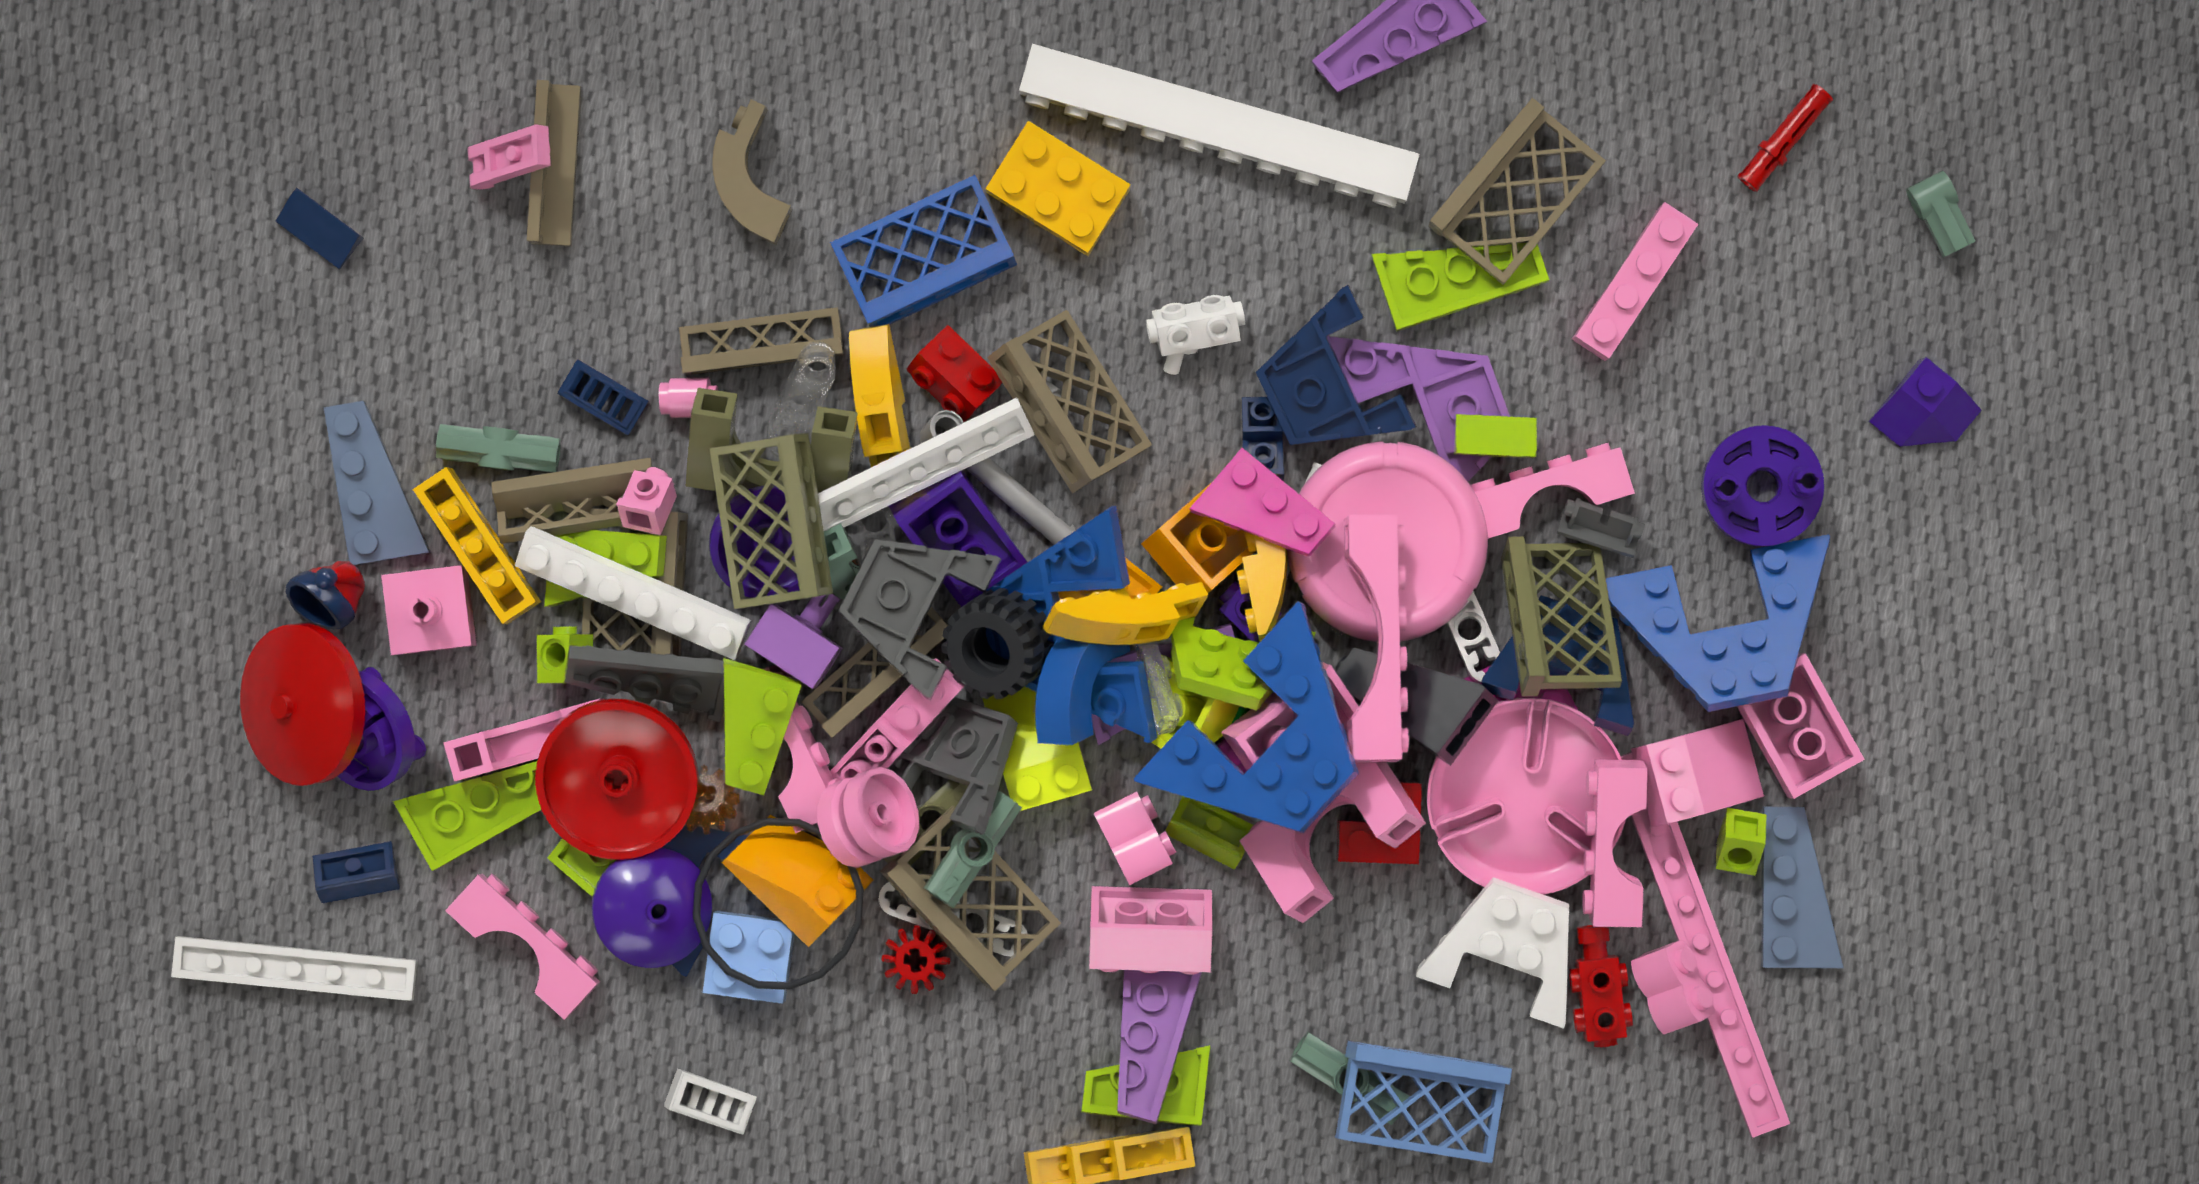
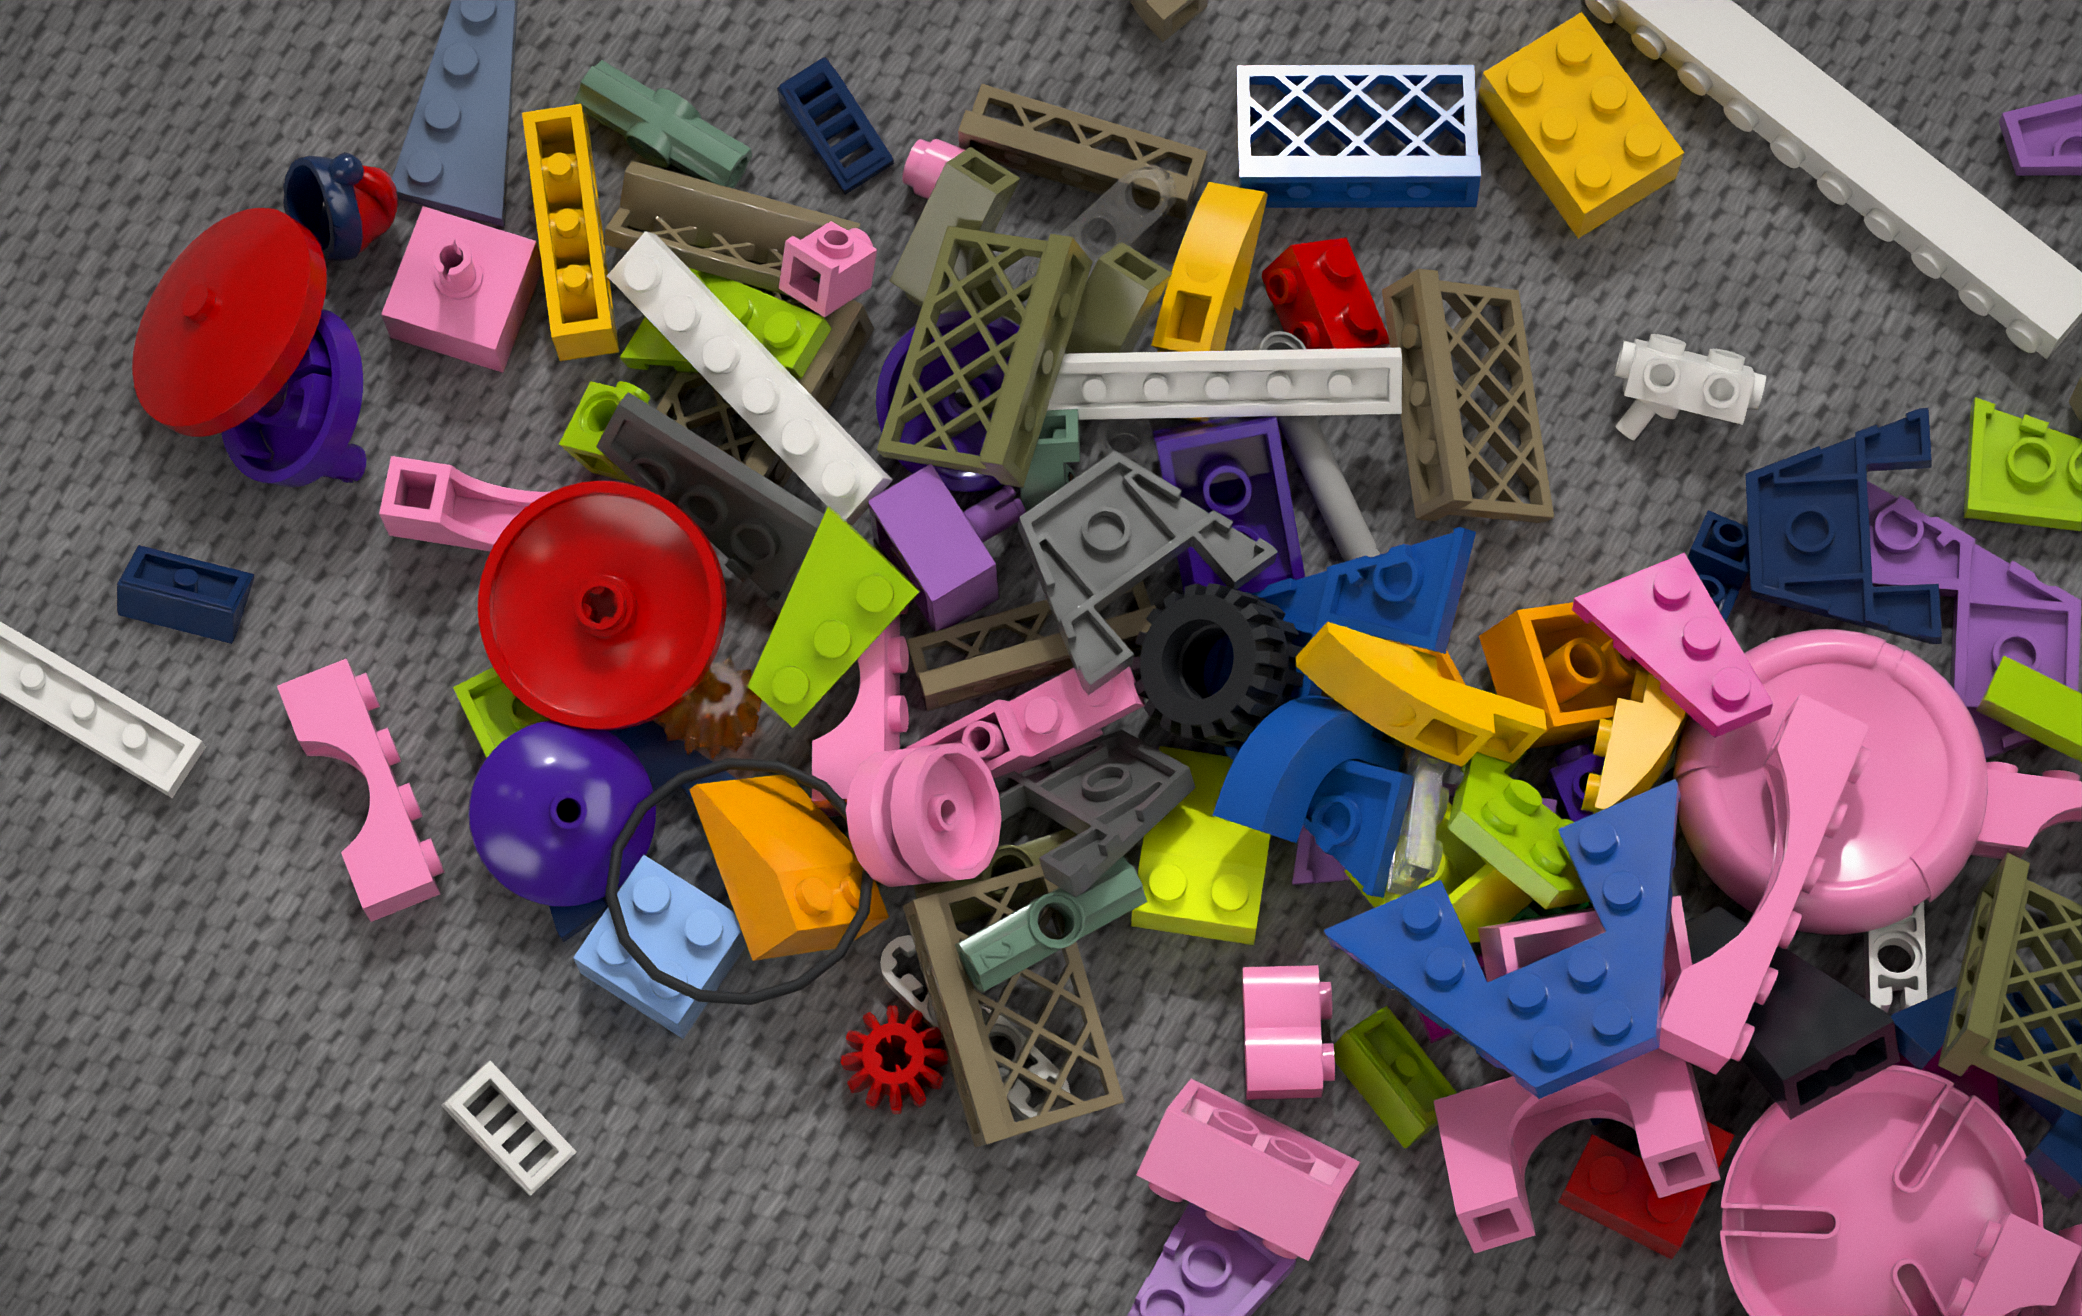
camera: 25 degrees right, 15 degrees down
(468, 813) = (374, 581): lime wing -> none

